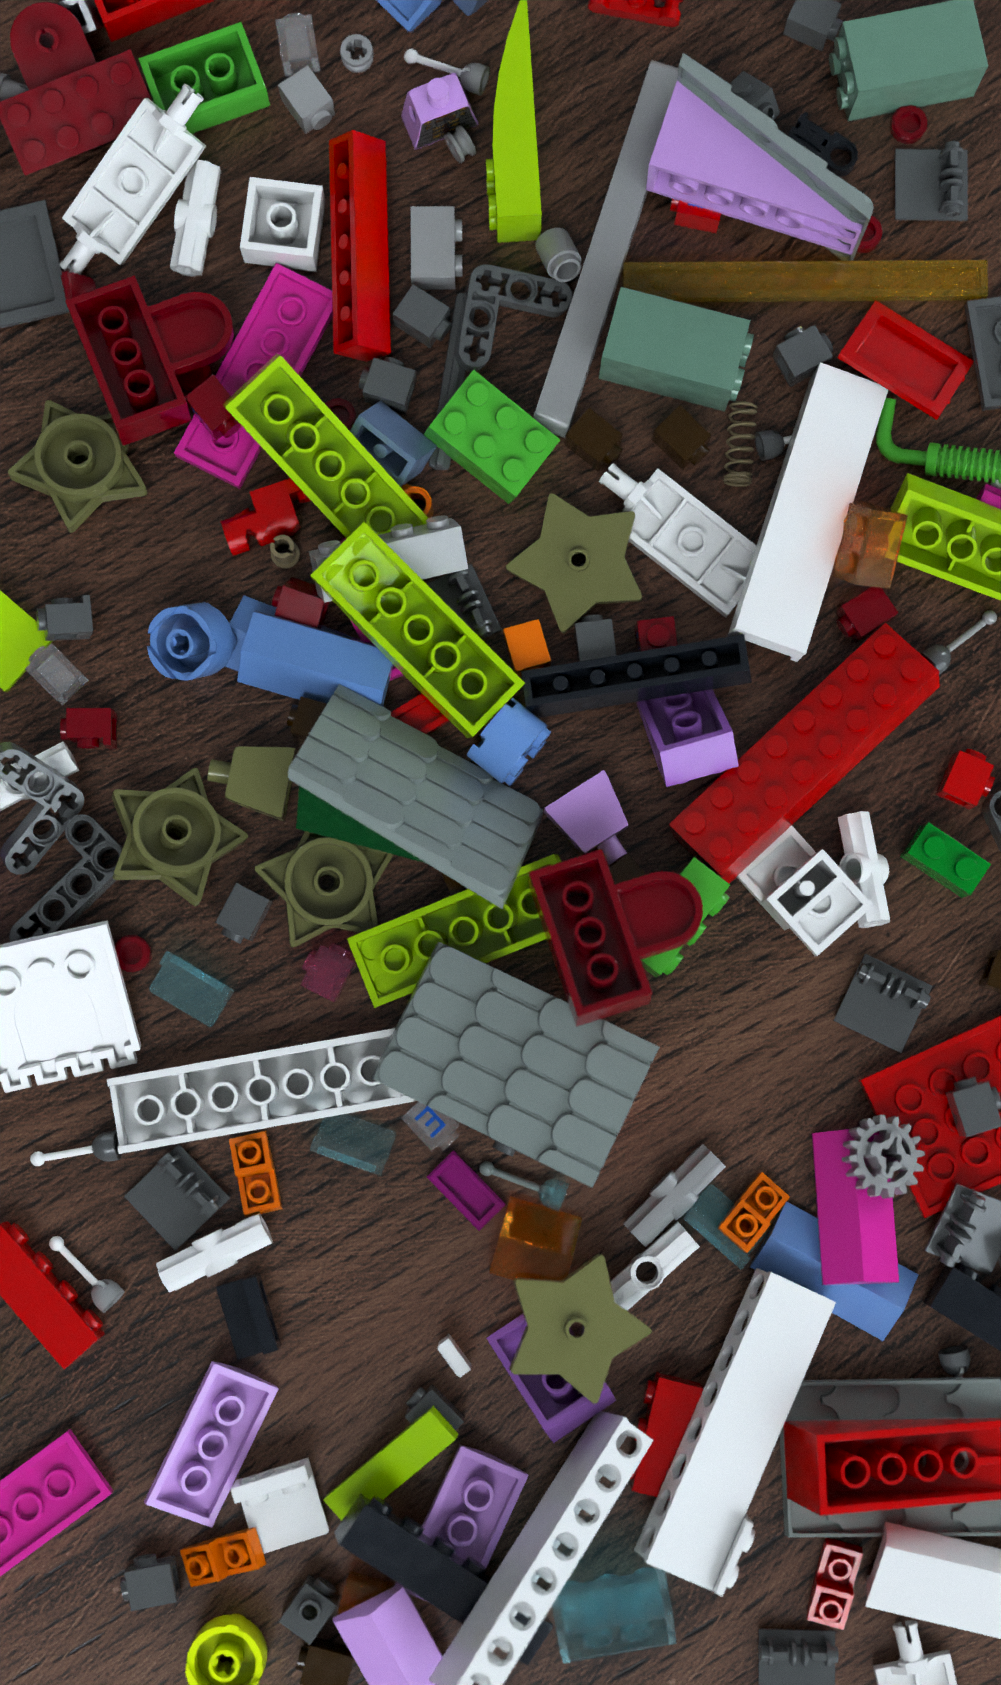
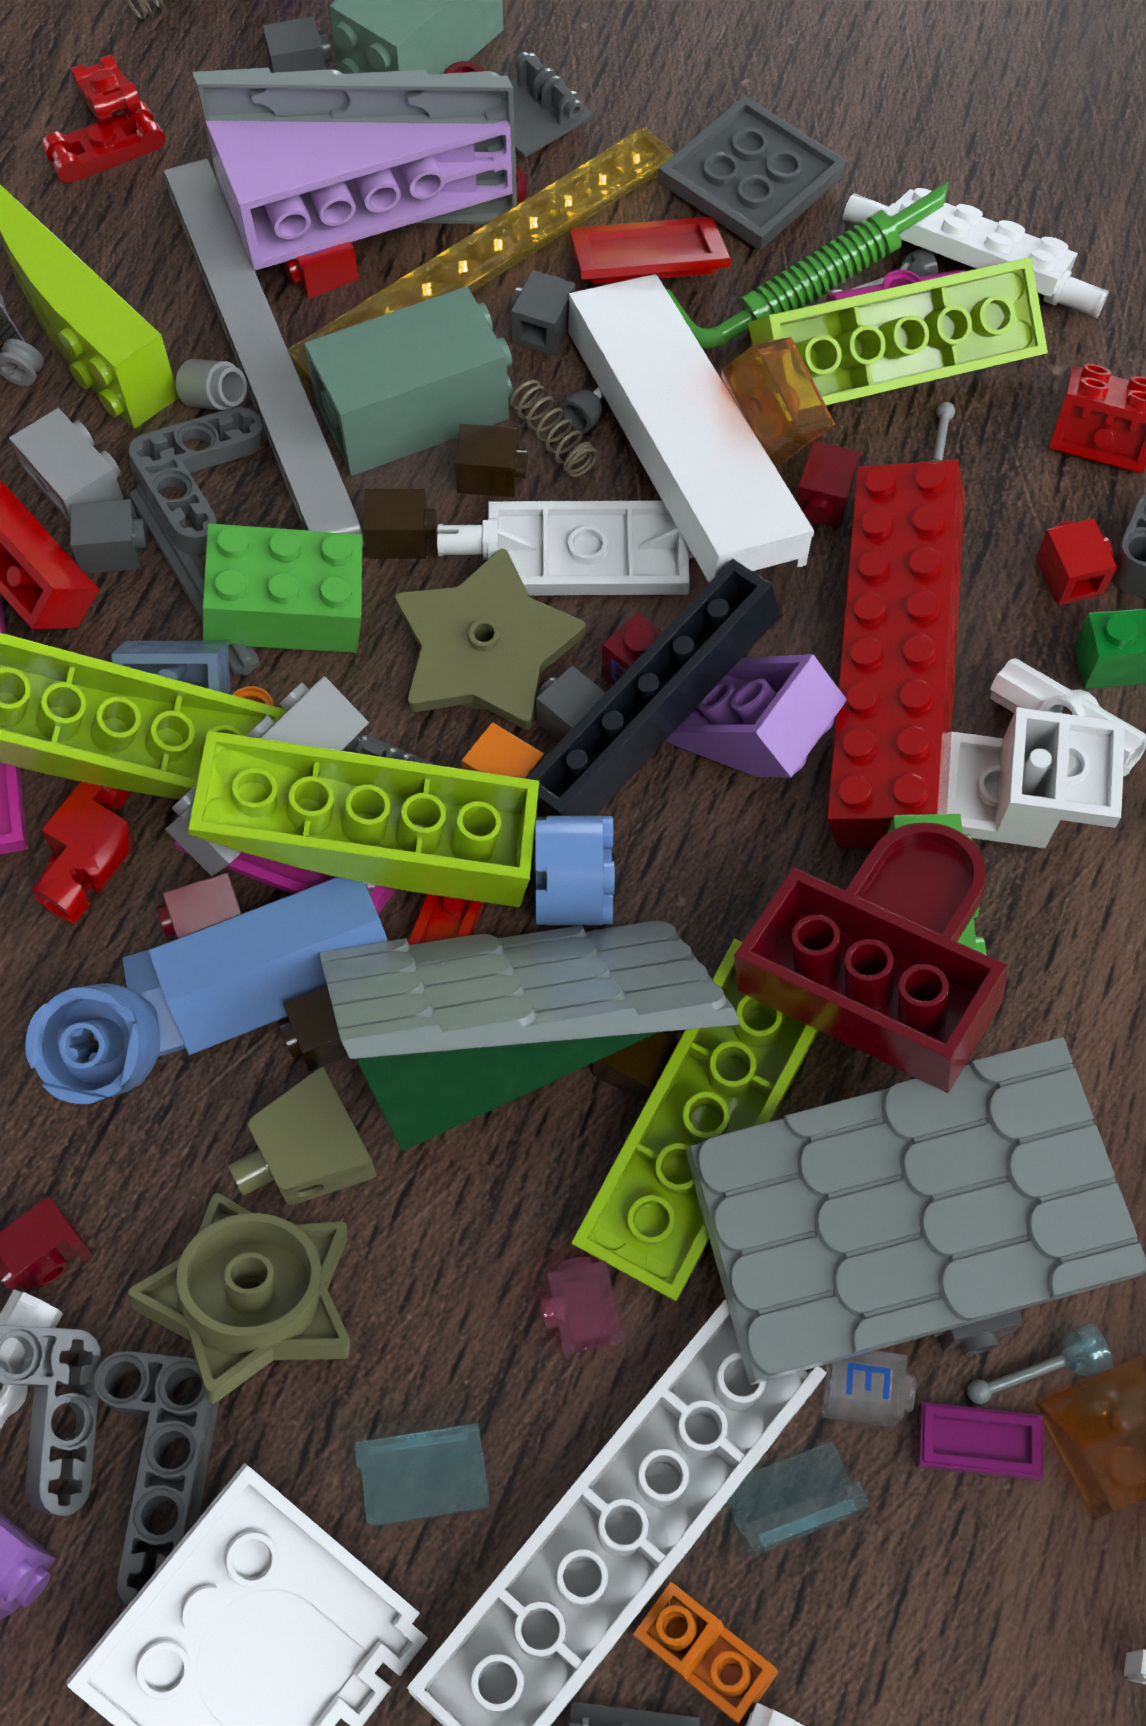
camera: 40 degrees left, 20 degrees down
(133, 953) = (312, 1490): dark red tile -> none
(243, 914) = (416, 1321): dark grey brick -> none
(287, 559) = (135, 872): dark tan pin -> none
(315, 910) = (486, 1241): olive plate -> none
(388, 382) = (119, 617): dark grey brick -> none
(591, 817) = (726, 885): lavender torso -> none

